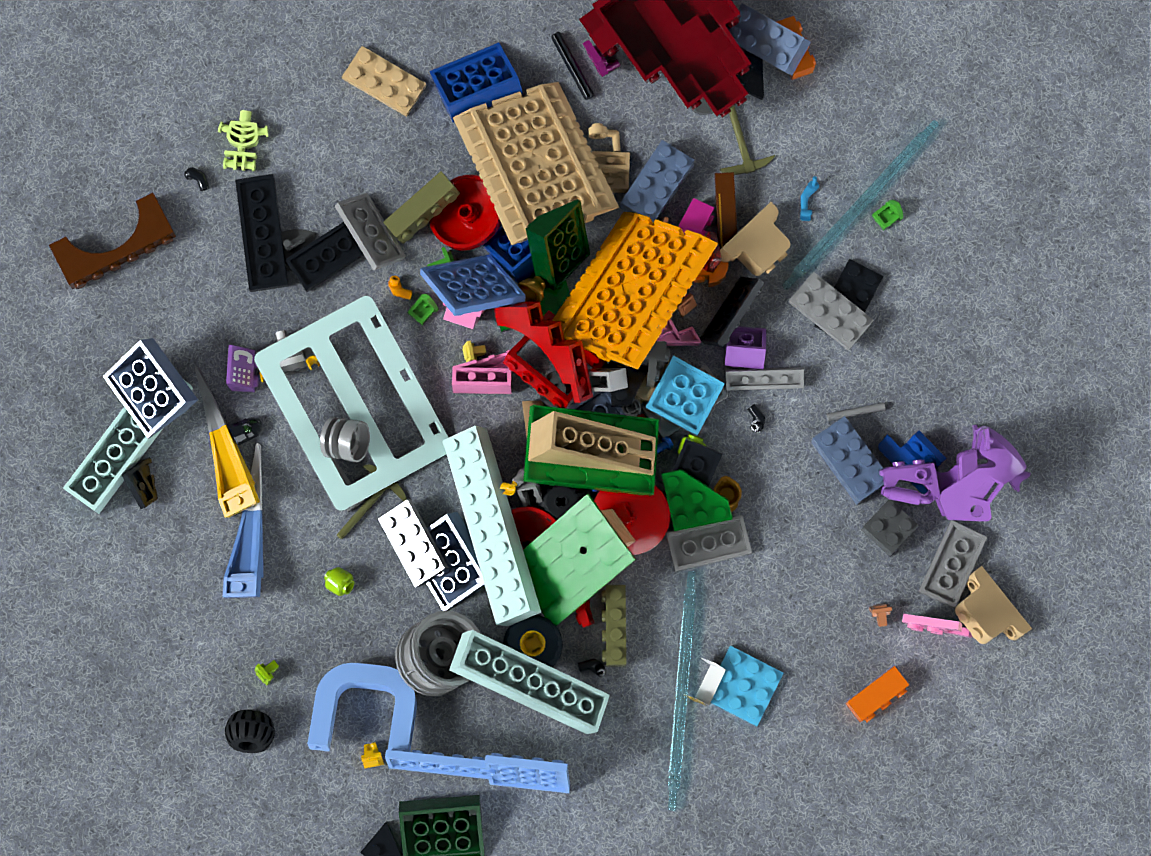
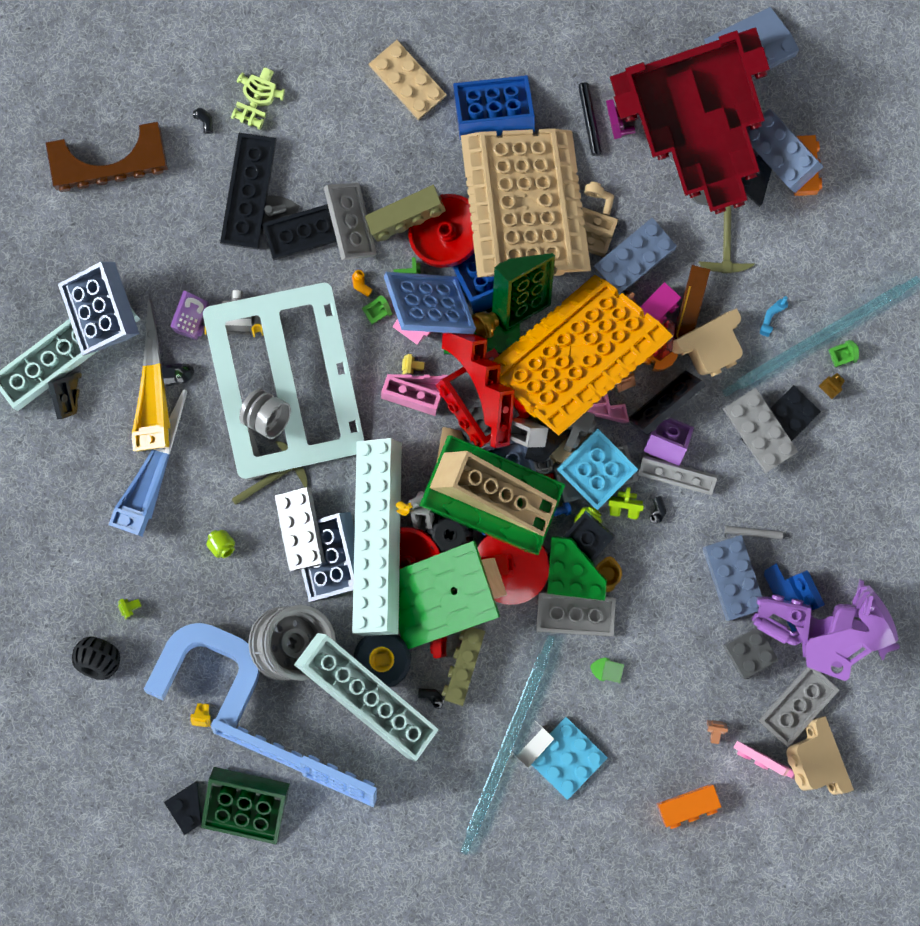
camera: 15 degrees right, 5 degrees up
(731, 421) = (633, 506): none -> lime hips
(756, 587) = (608, 670): none -> bright green tile
(886, 248) = (832, 385): none -> pearl gold brick

